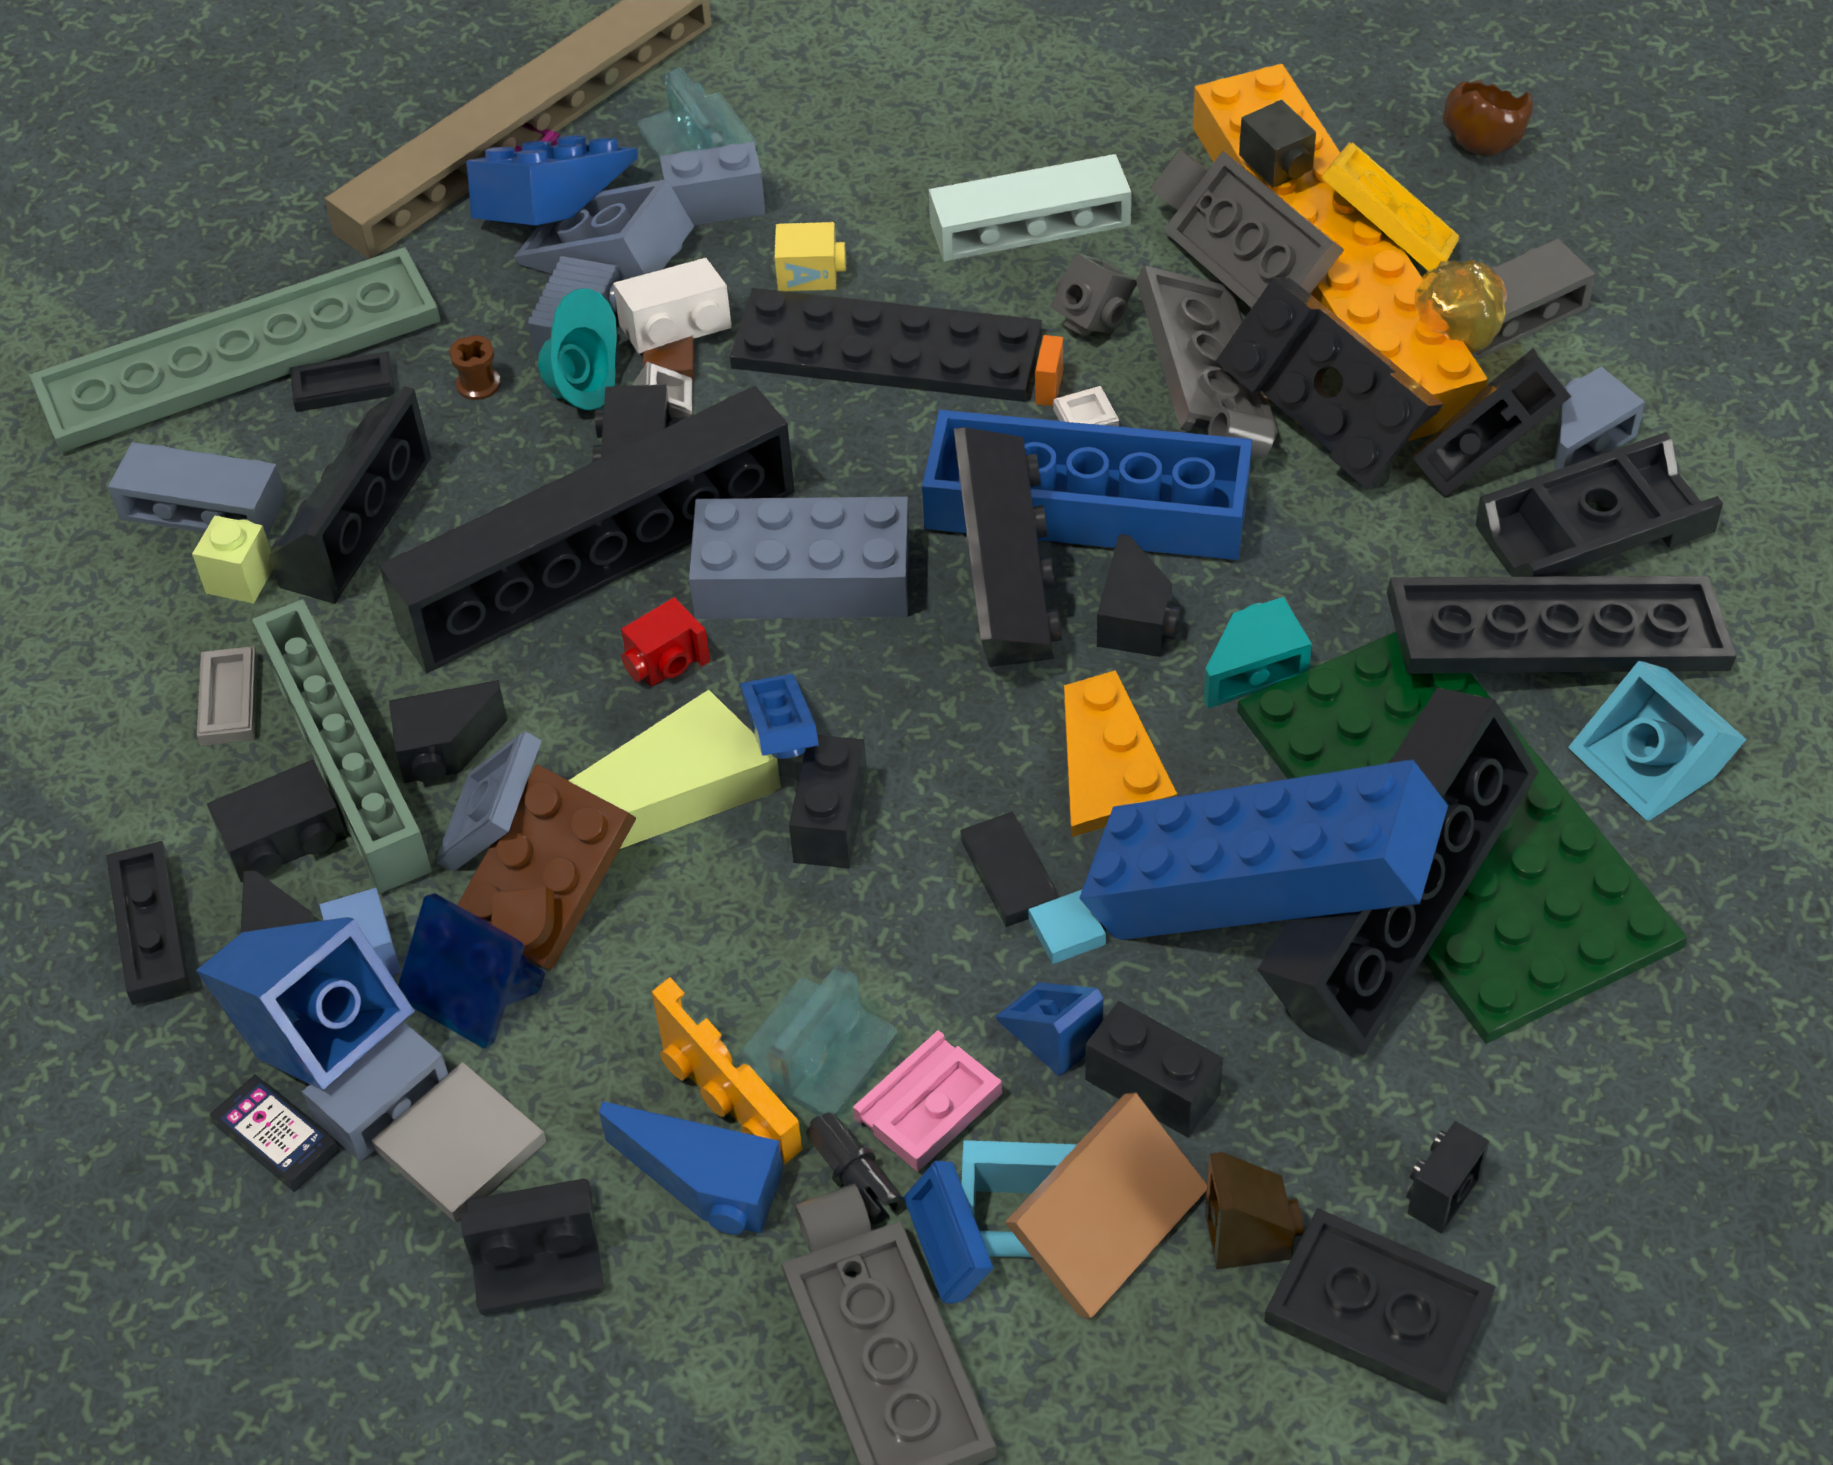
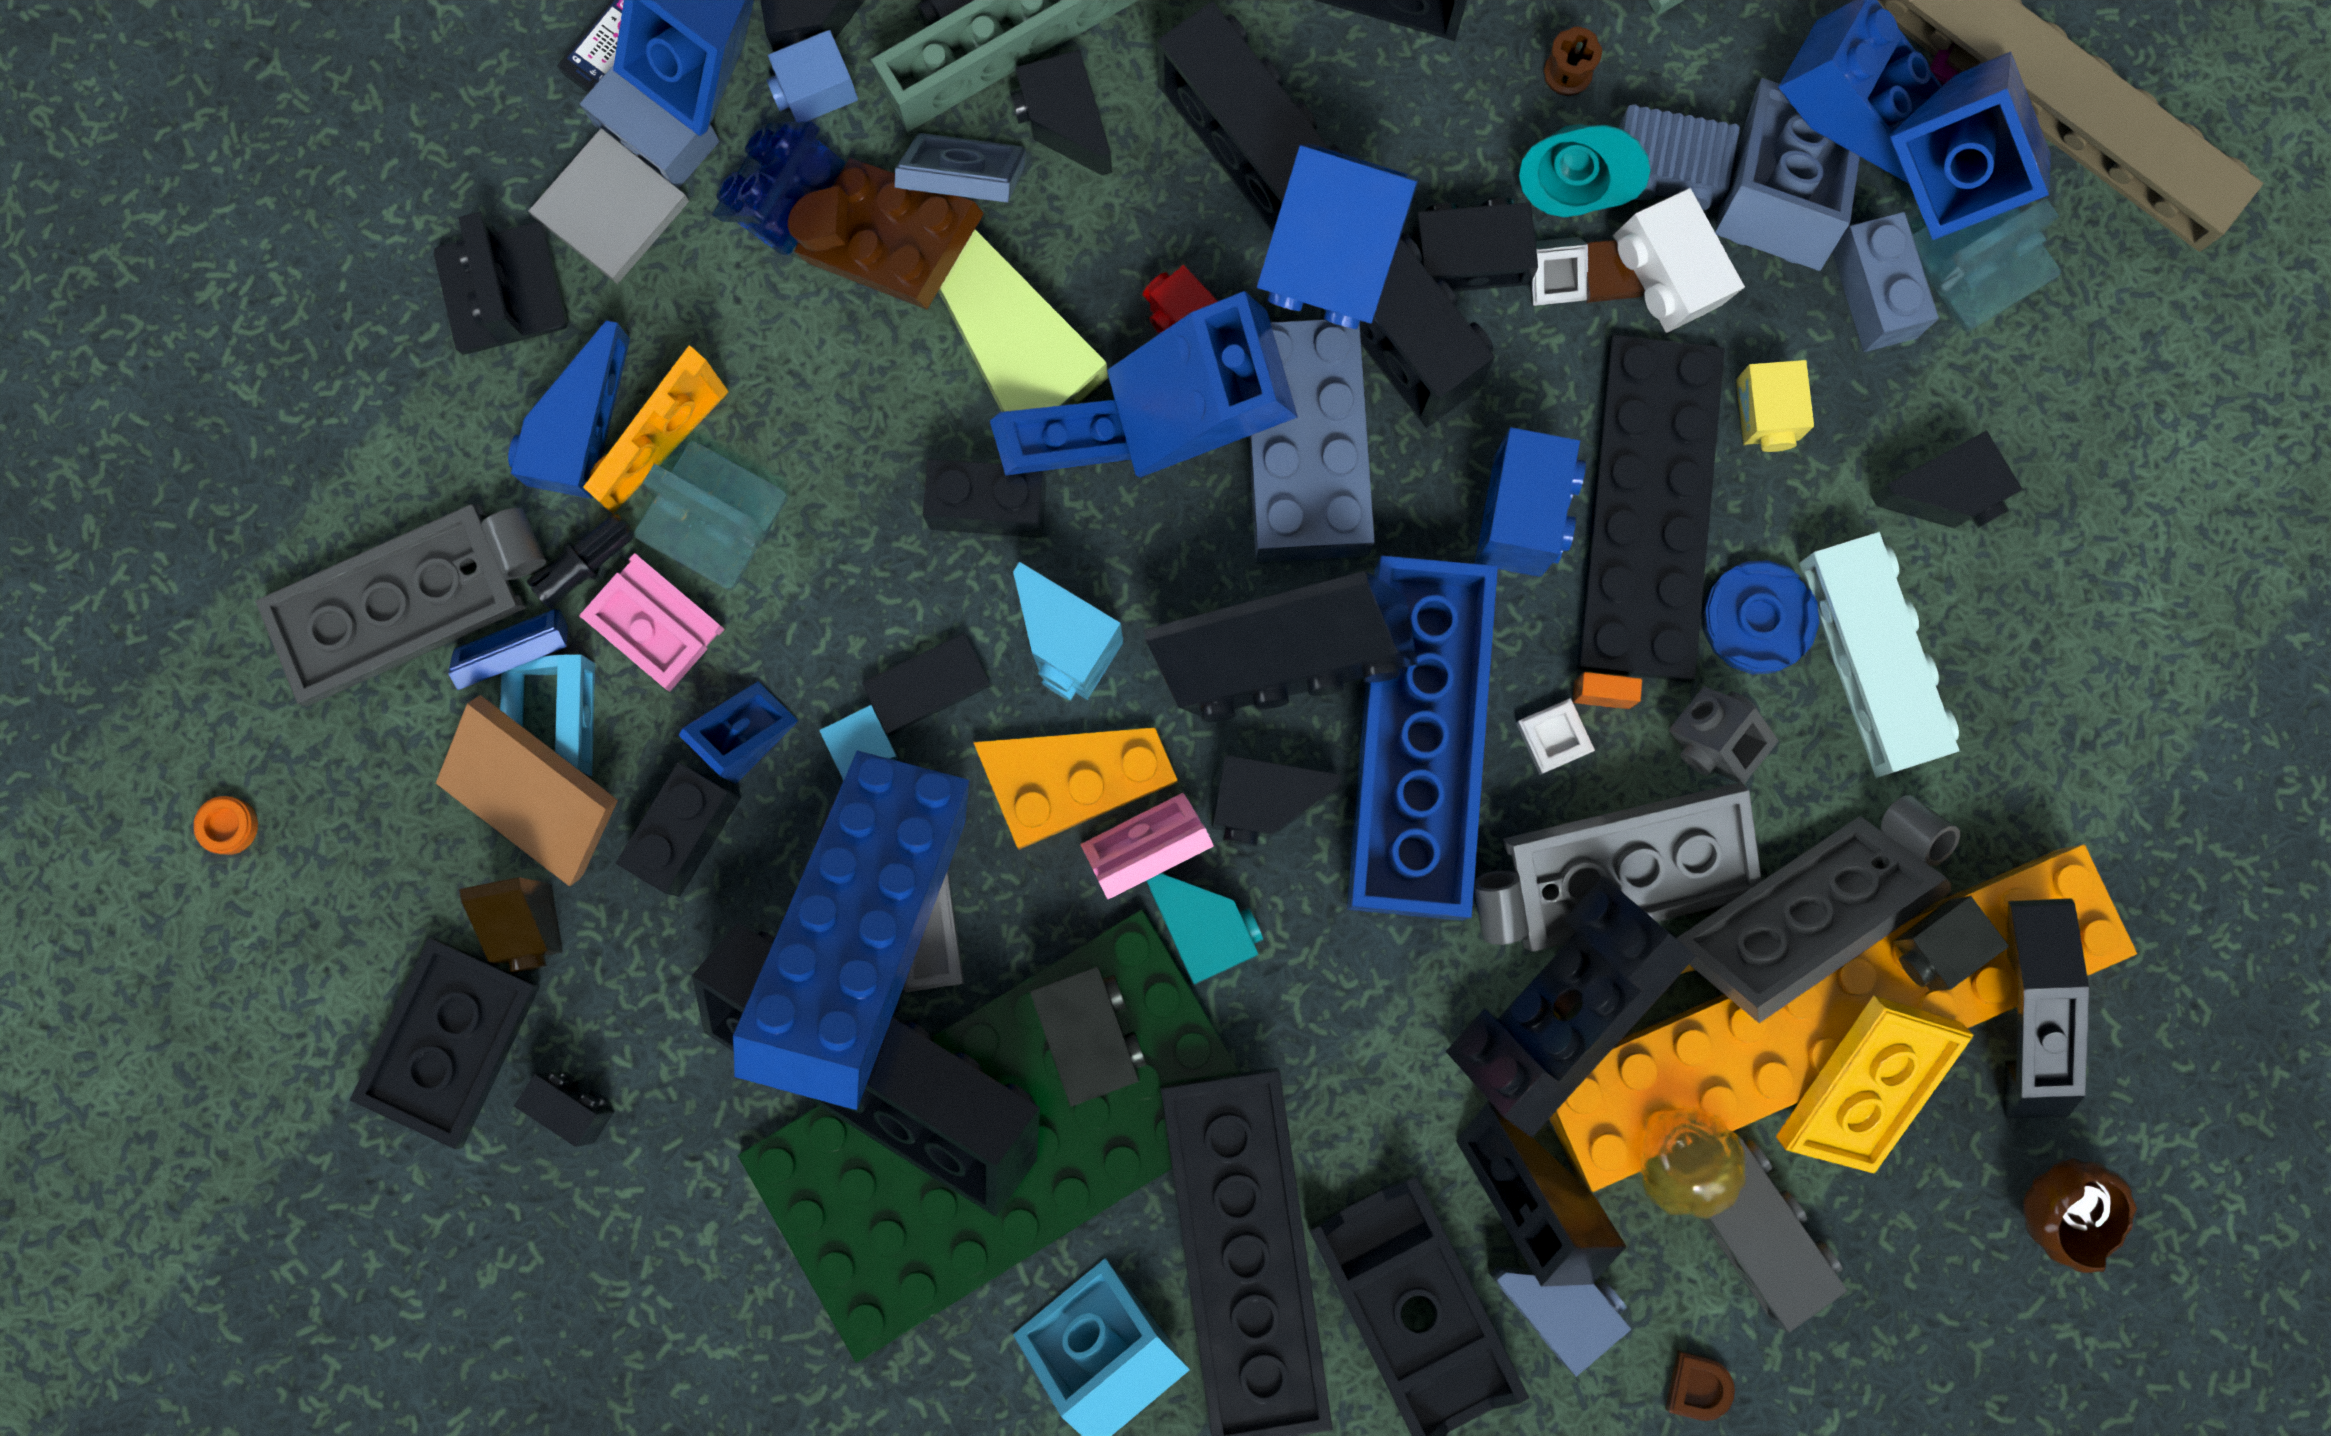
camera: 85 degrees right, 30 degrees up
(614, 97) = (1974, 148): none -> blue slope
(630, 459) = (1336, 235): none -> blue slope
(750, 598) = (1201, 385): none -> blue slope
(880, 399) = (1529, 502): none -> blue brick
(889, 156) = (1955, 486): none -> black slope
(970, 289) = (1742, 629): none -> blue tile
(972, 729) = (1066, 635): none -> medium azure slope
(1179, 685) = (1146, 845): none -> bright pink plate
(1339, 92) = (2051, 1010): none -> black slope
(1357, 718) = (1087, 1036): none -> pearl dark grey brick
(1645, 350) = (1699, 1388): none -> reddish brown tile

